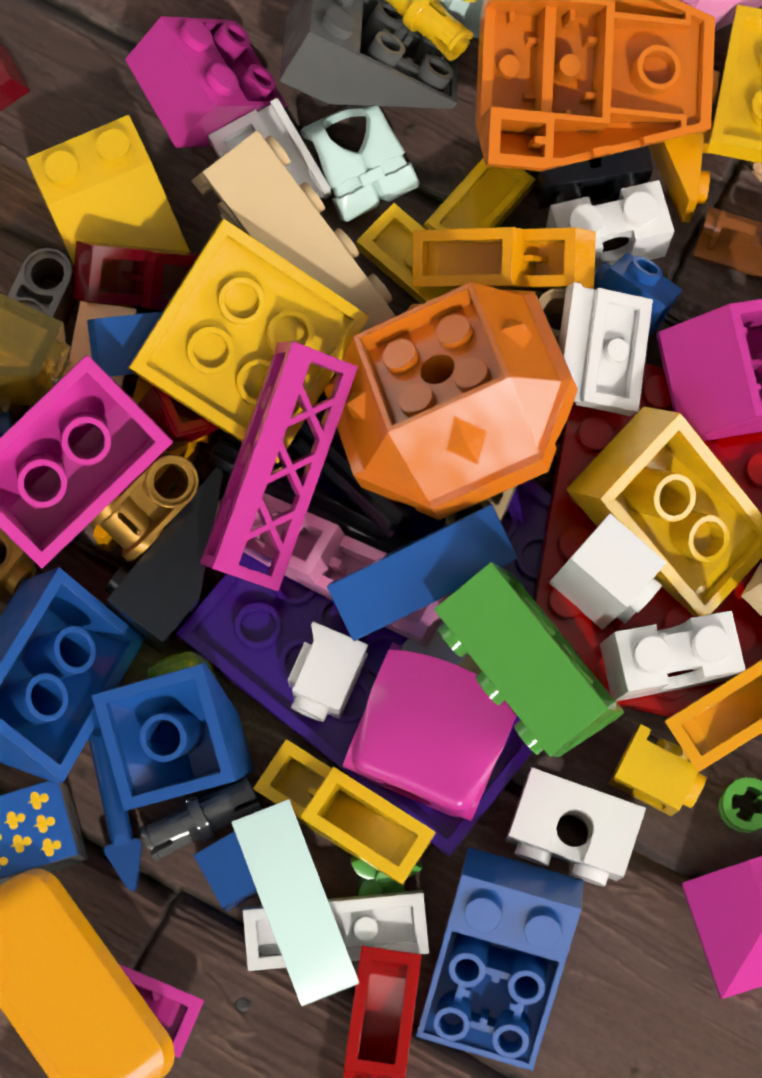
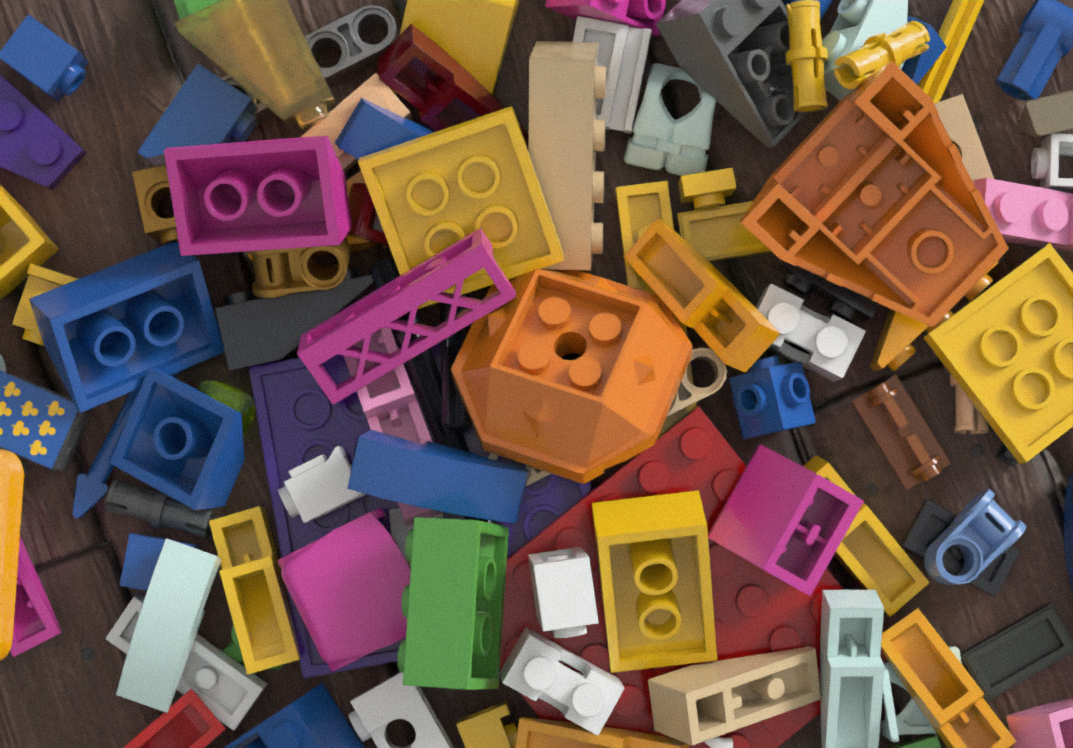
camera: 40 degrees right, 10 degrees up
(429, 183) = (707, 188): none -> yellow plate
(605, 346) = (709, 424): white plate -> none

